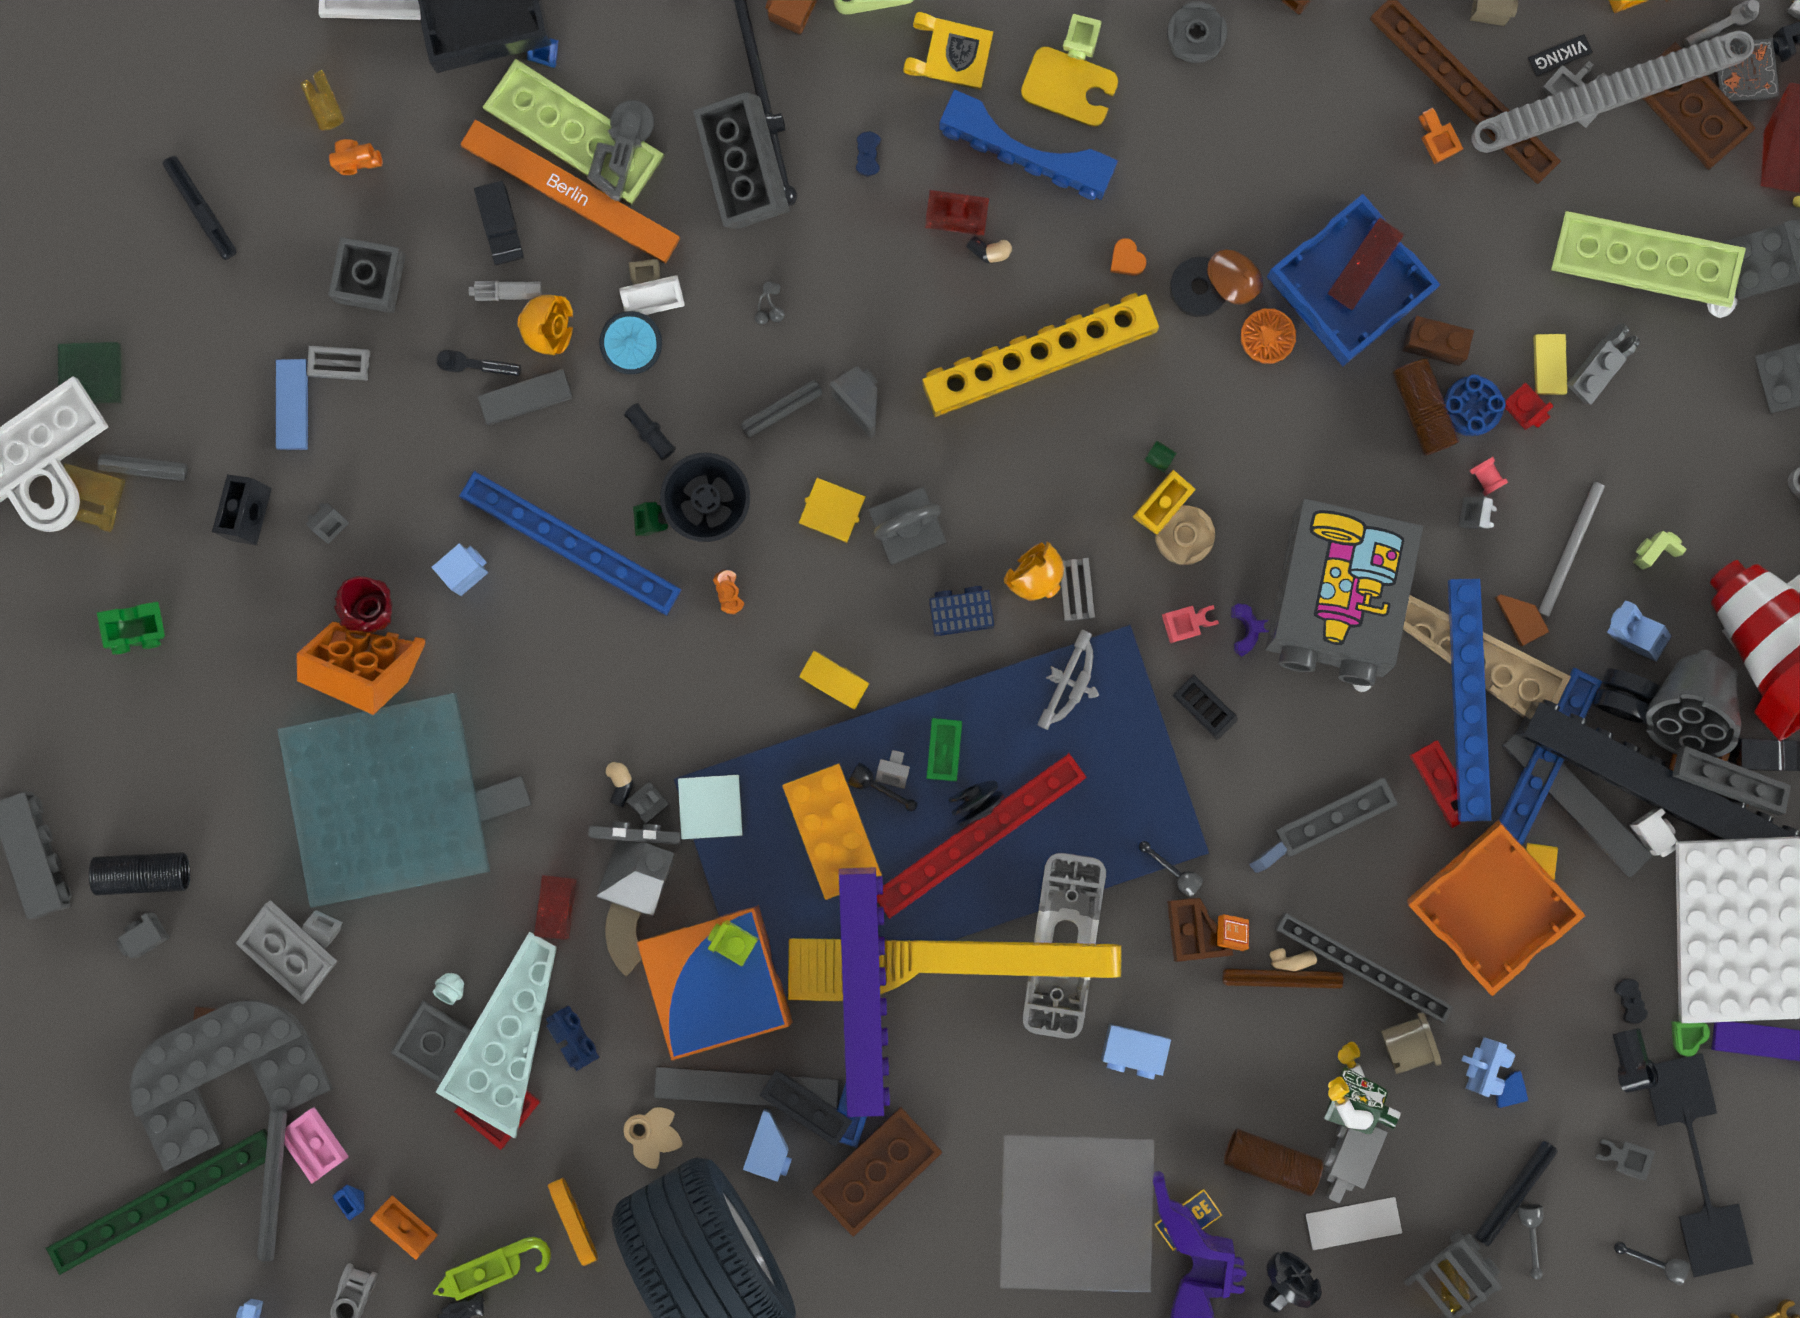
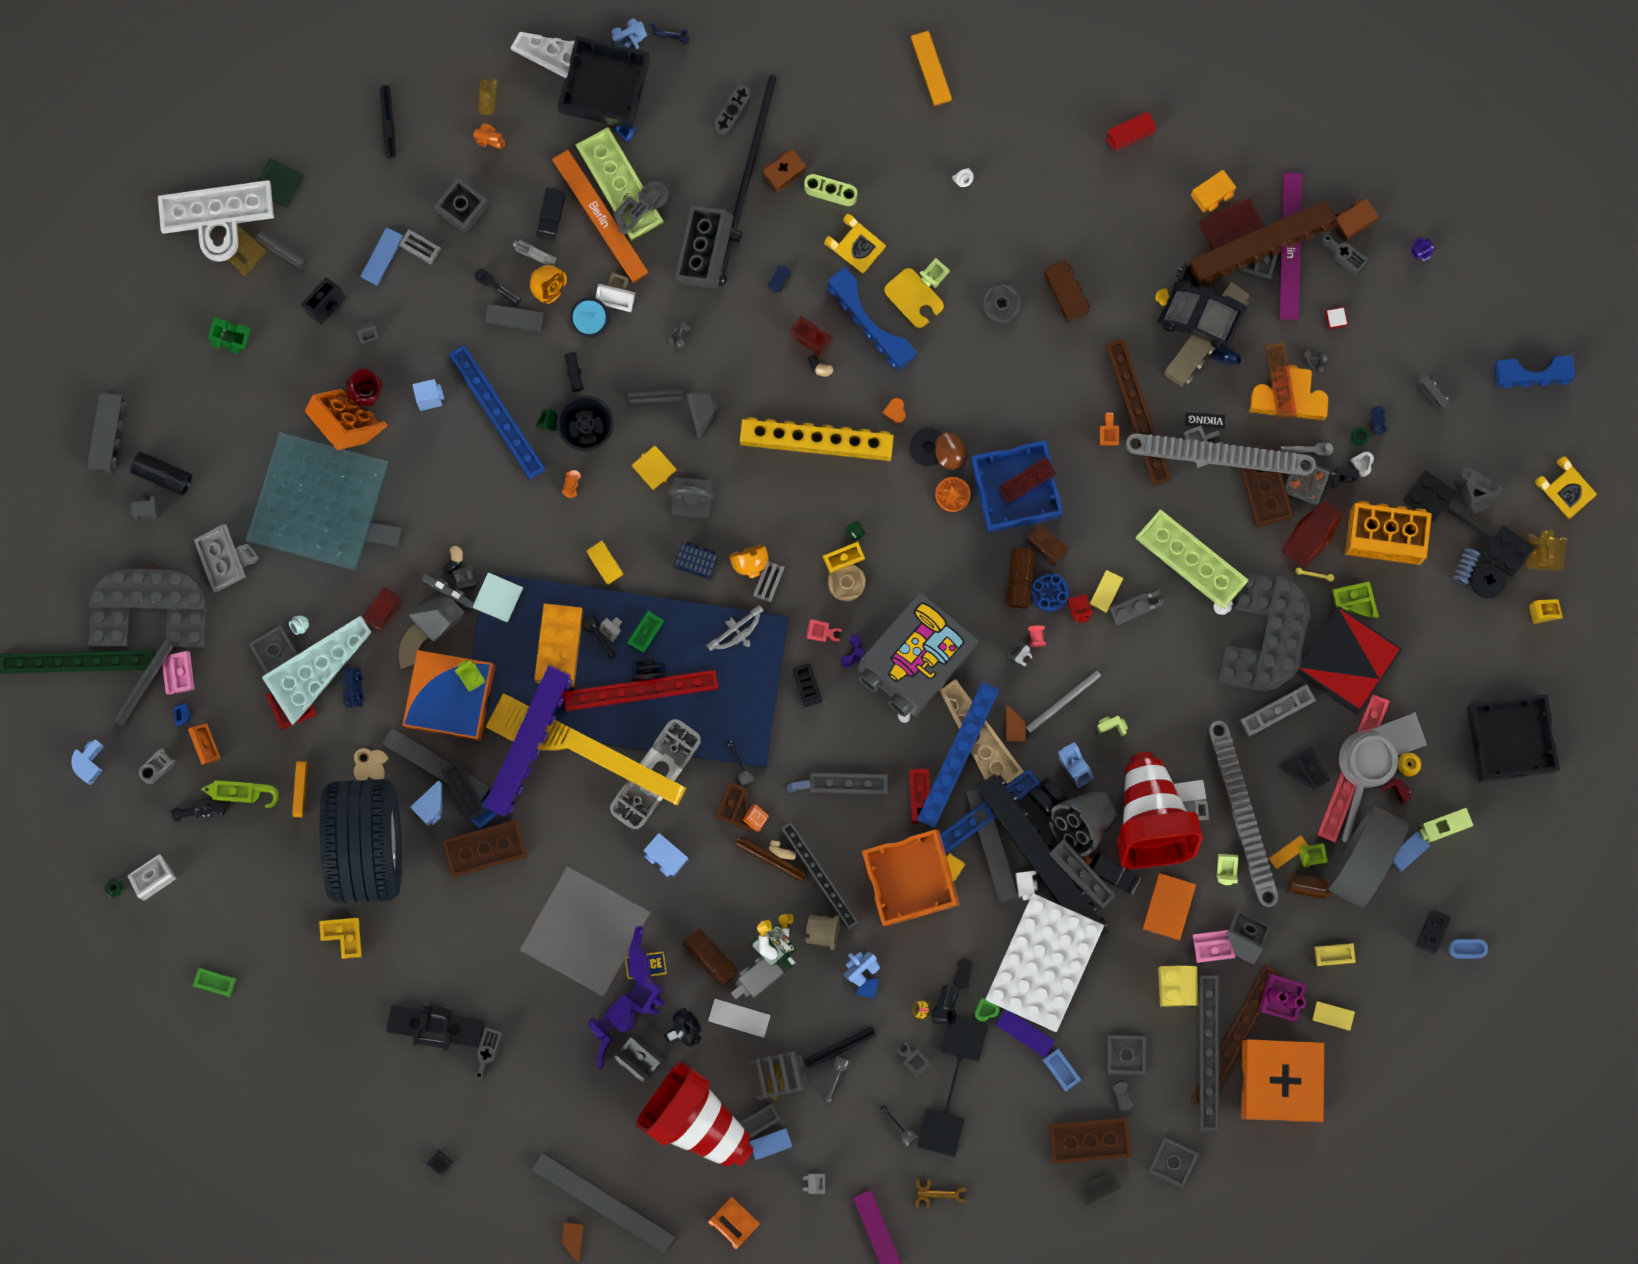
camera: 25 degrees right, 5 degrees down
(1600, 1082) = (921, 1010): none -> tile

